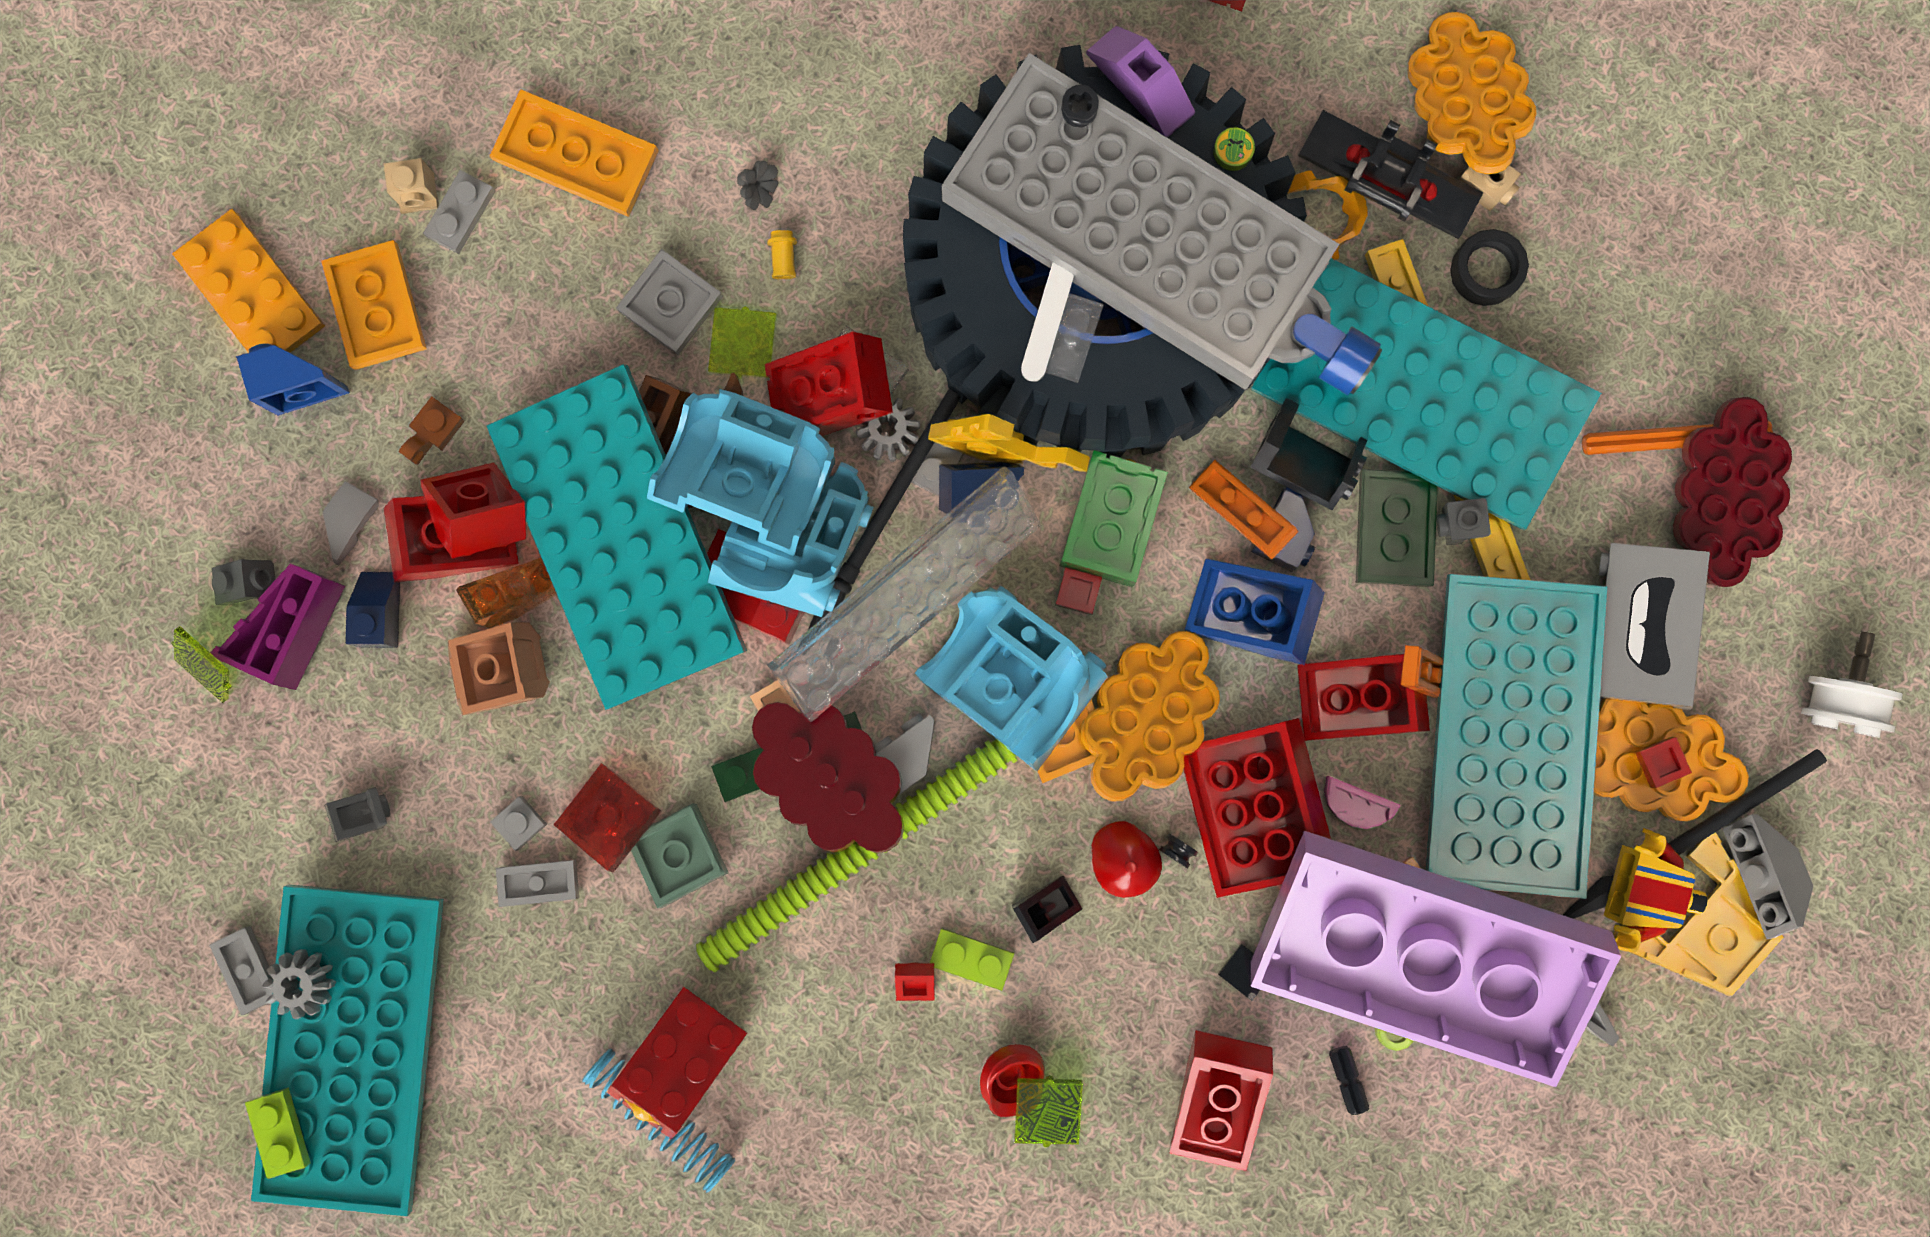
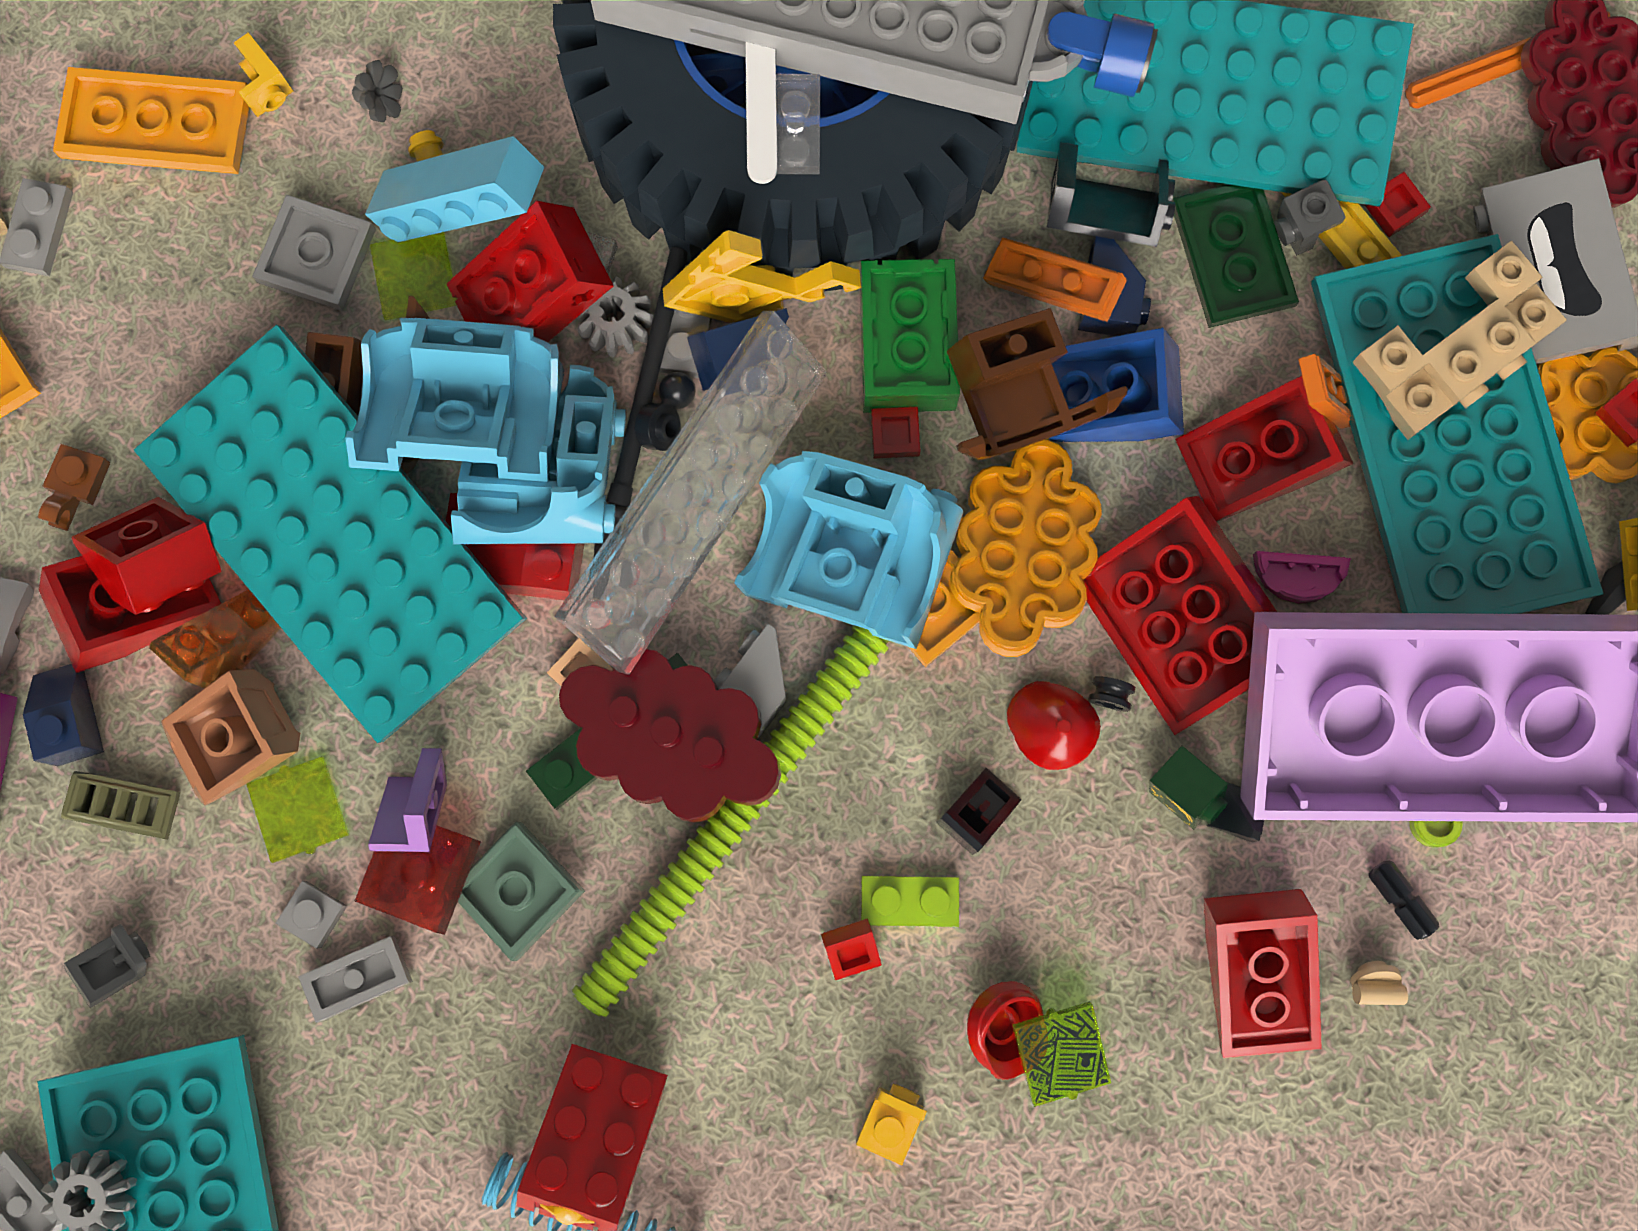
camera: 20 degrees left, 5 degrees down
(370, 679) = (80, 795): none -> olive slope
(530, 739) = (297, 809): none -> clear neon green piece
(616, 768) = (411, 807): none -> medium lavender panel
(674, 150) = (268, 85): none -> yellow bracket
(792, 295) = (455, 190): none -> medium azure brick
(897, 526) = (660, 422): none -> black plate
(904, 1120) = (891, 1123): none -> yellow bracket
(1181, 593) = (1014, 388): none -> reddish brown piece
(1212, 944) = (1189, 788): none -> dark green brick
(1305, 1138) = (1378, 985): none -> tan plate
(1542, 532) = (1400, 205): none -> red plate
(1560, 677) = (1454, 371): none -> tan bracket

